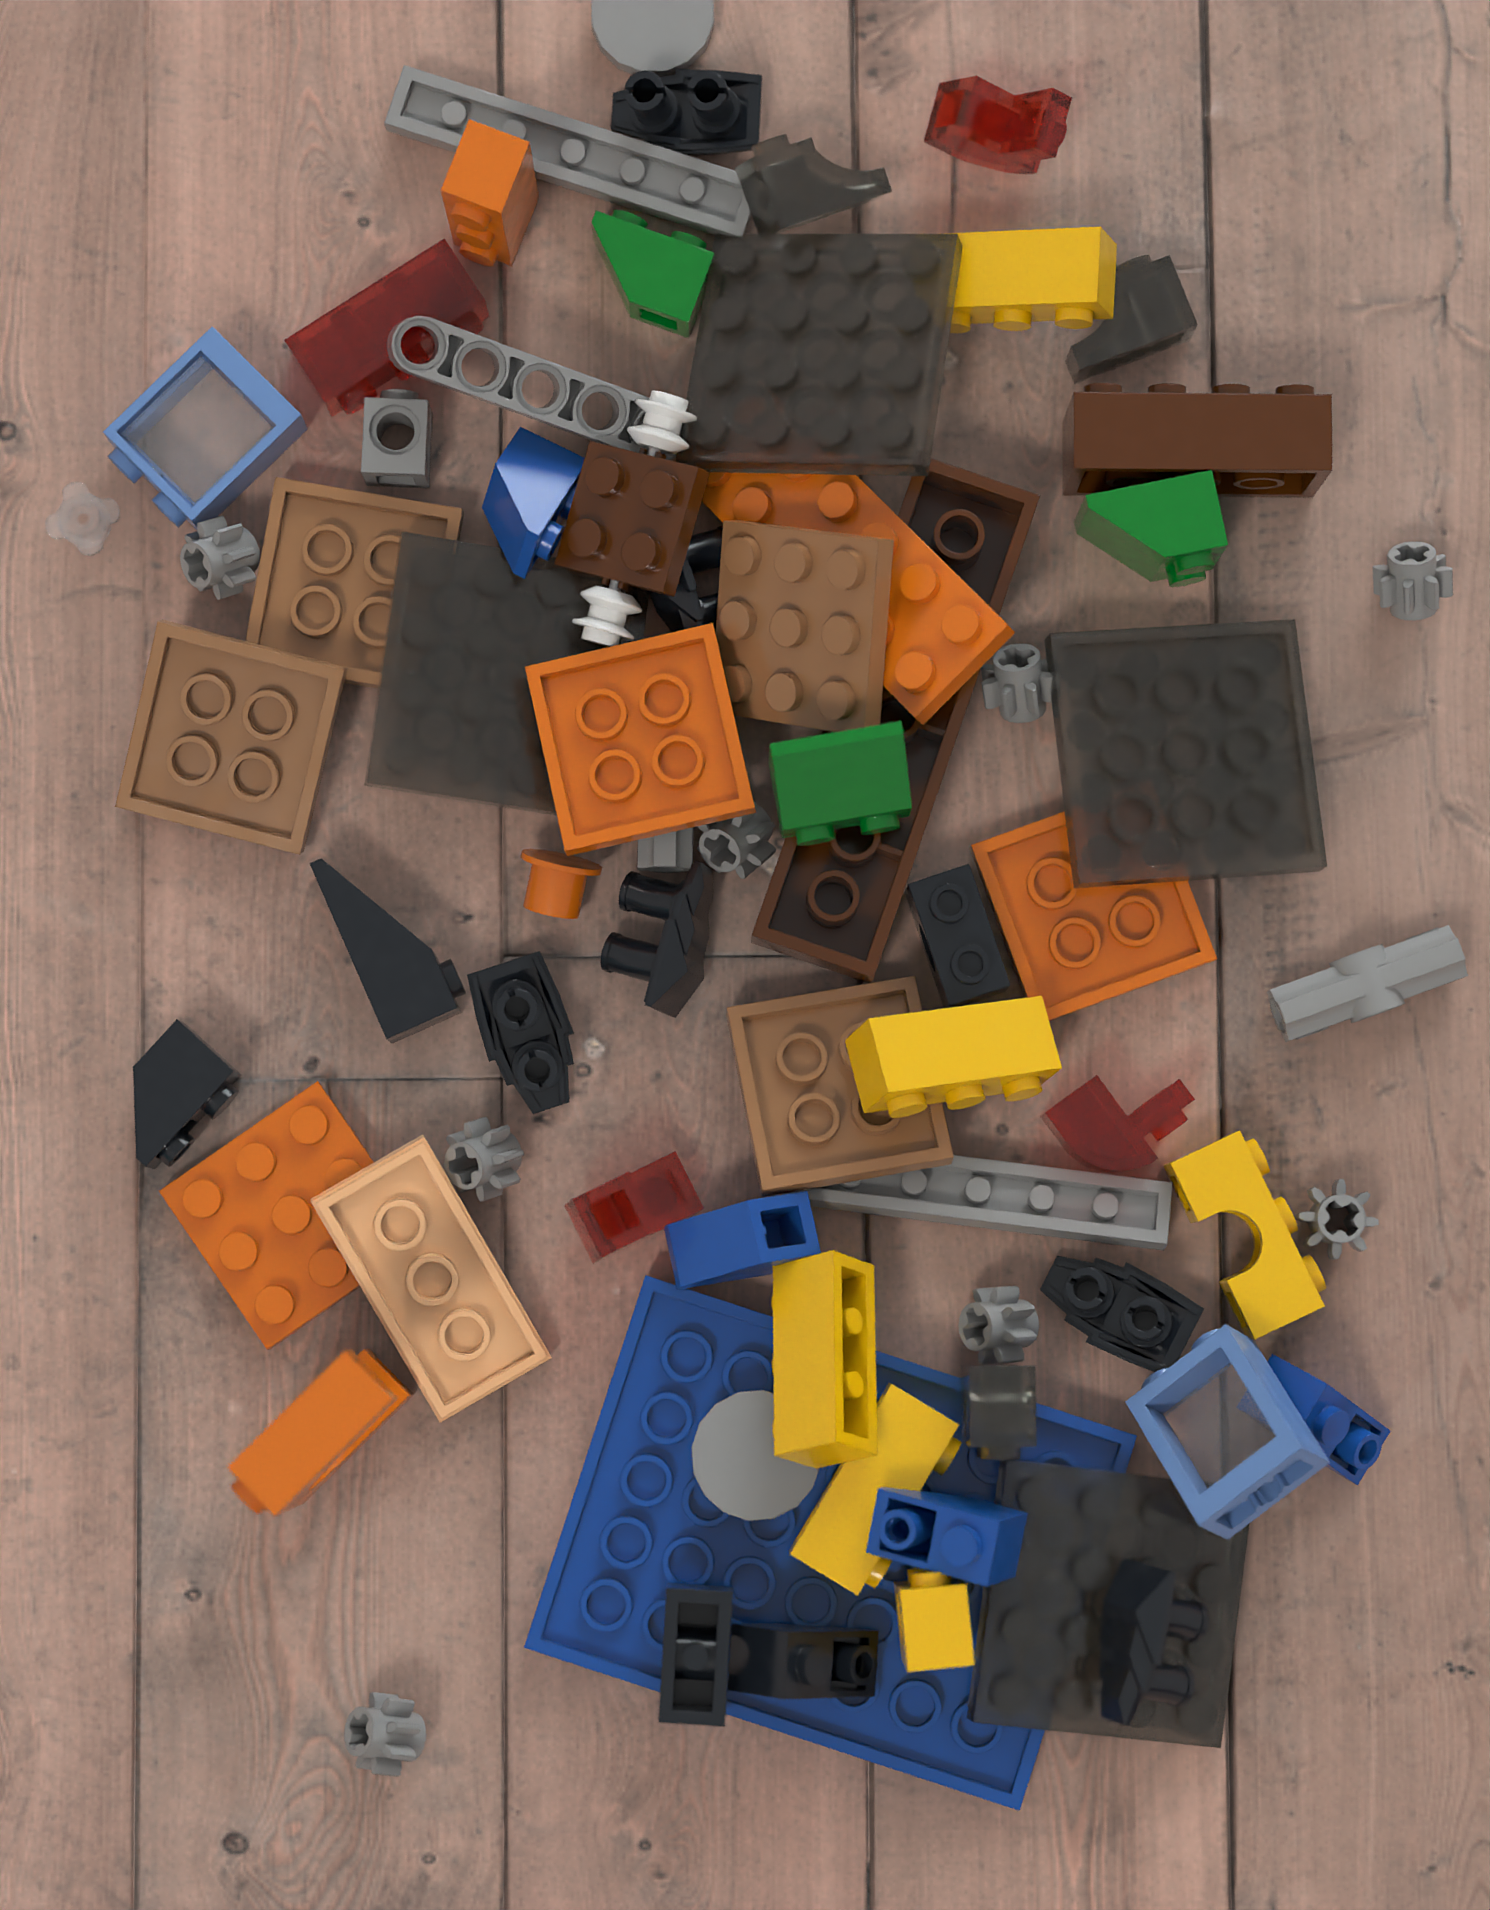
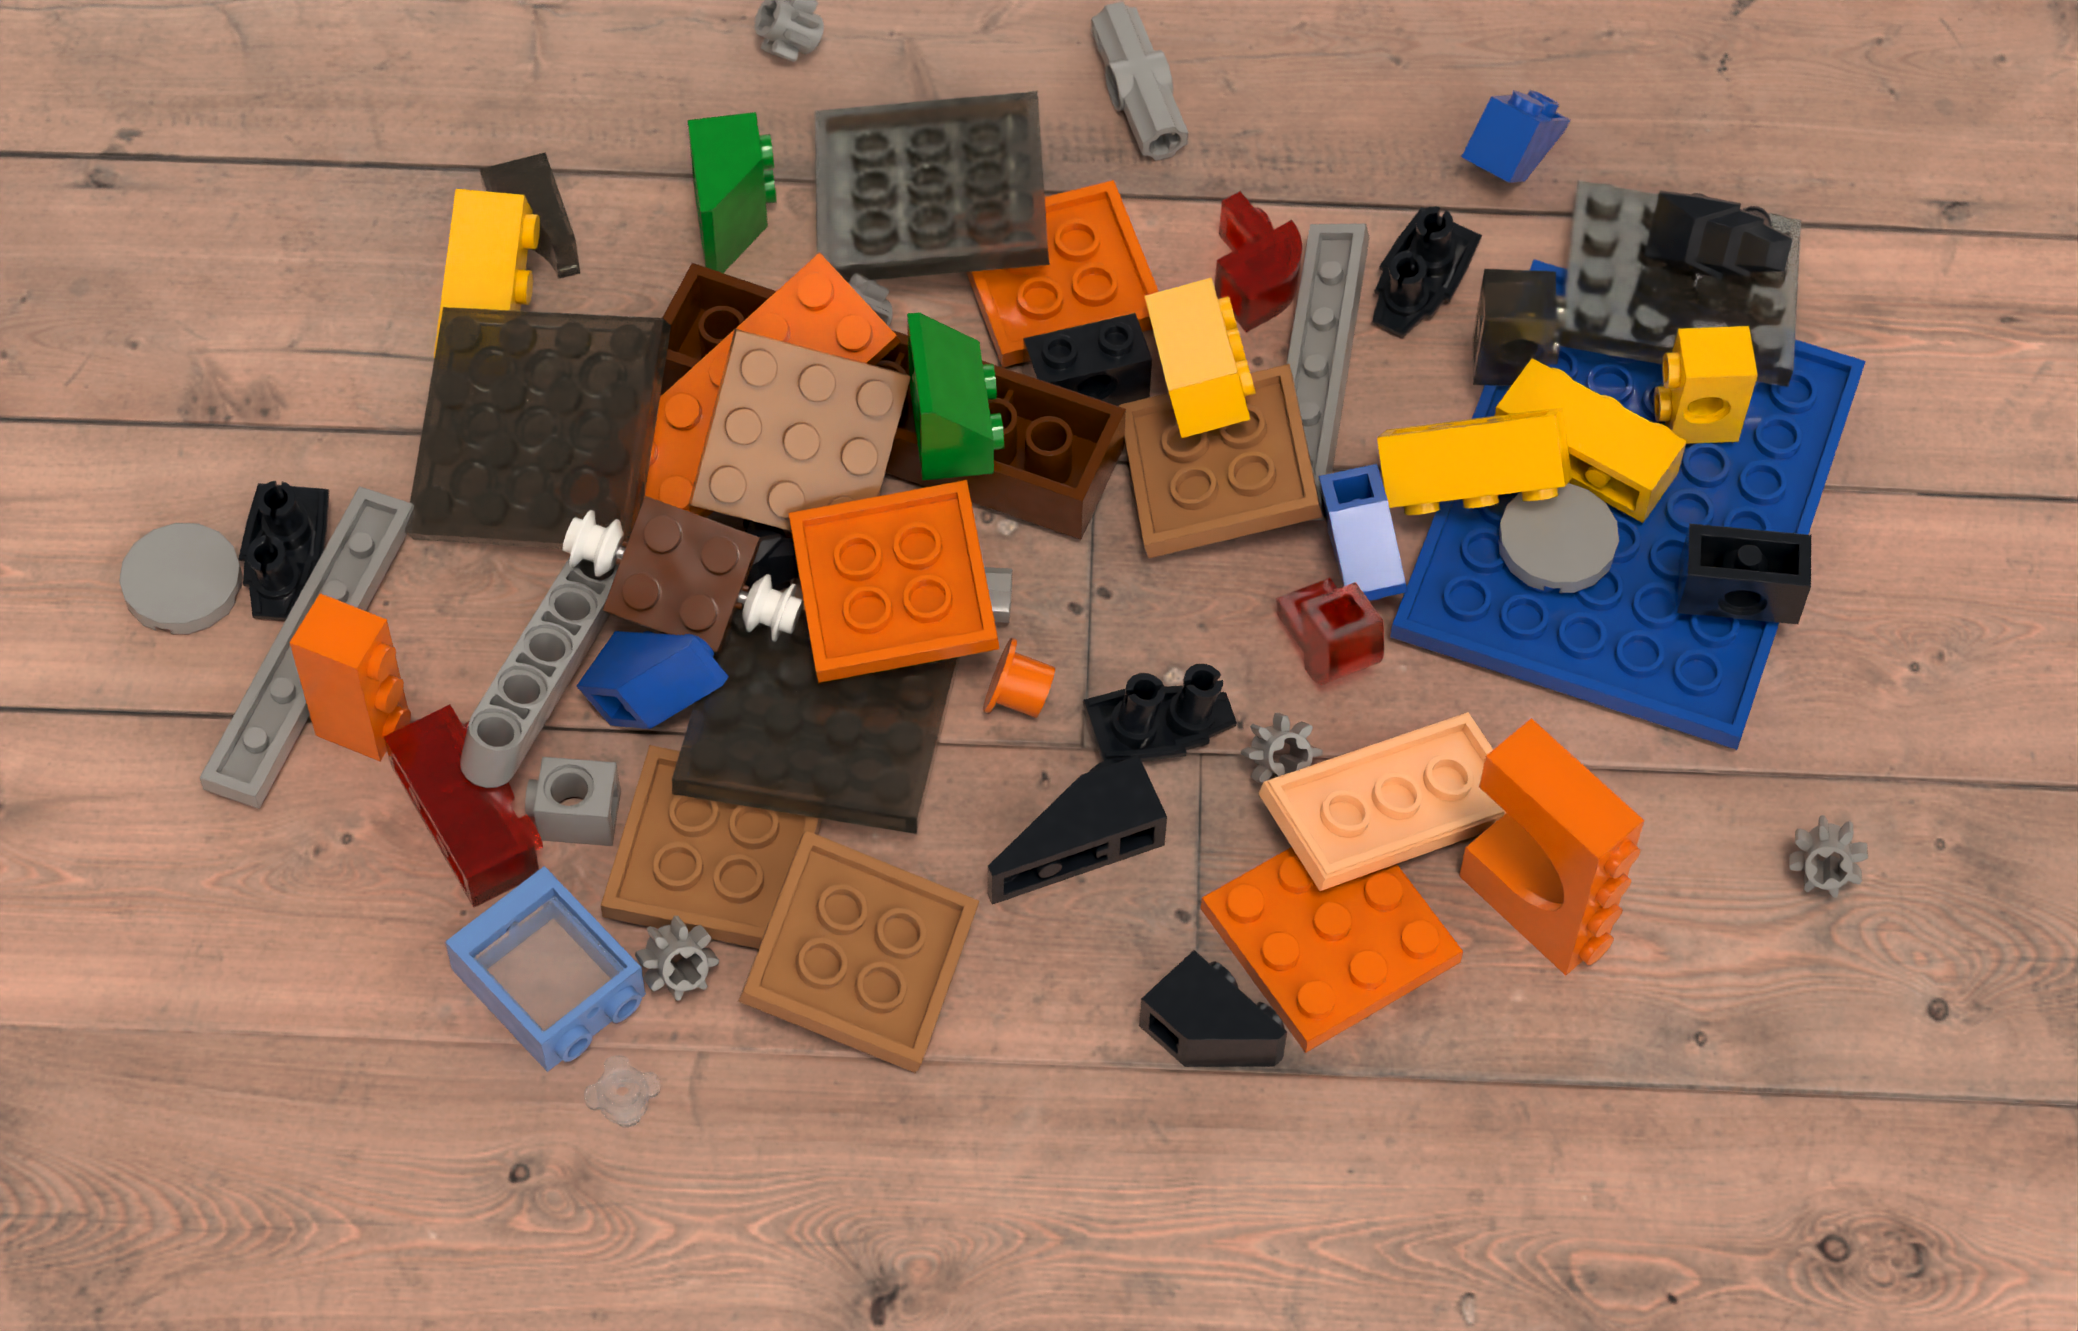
camera: 85 degrees left, 25 degrees down
(654, 273) = (438, 579): green slope -> none
(677, 963) = (1100, 583): black connector -> none
(738, 843) = (995, 530): light grey gear -> none
(797, 185) = (374, 446): clear smoke arch -> none
(802, 1661) = (1746, 490): black slope -> none
(947, 1534) = (1632, 359): blue slope -> none
(996, 127) = (343, 297): clear red brick -> none
(998, 1325) = (1452, 349): light grey gear -> none
(1226, 1431) = (1530, 172): medium blue window -> none
(1247, 439) = (650, 163): reddish brown brick -> none
(1276, 1281) = (1394, 156): yellow arch -> none
(1354, 1221) = (1343, 111): light grey gear -> none

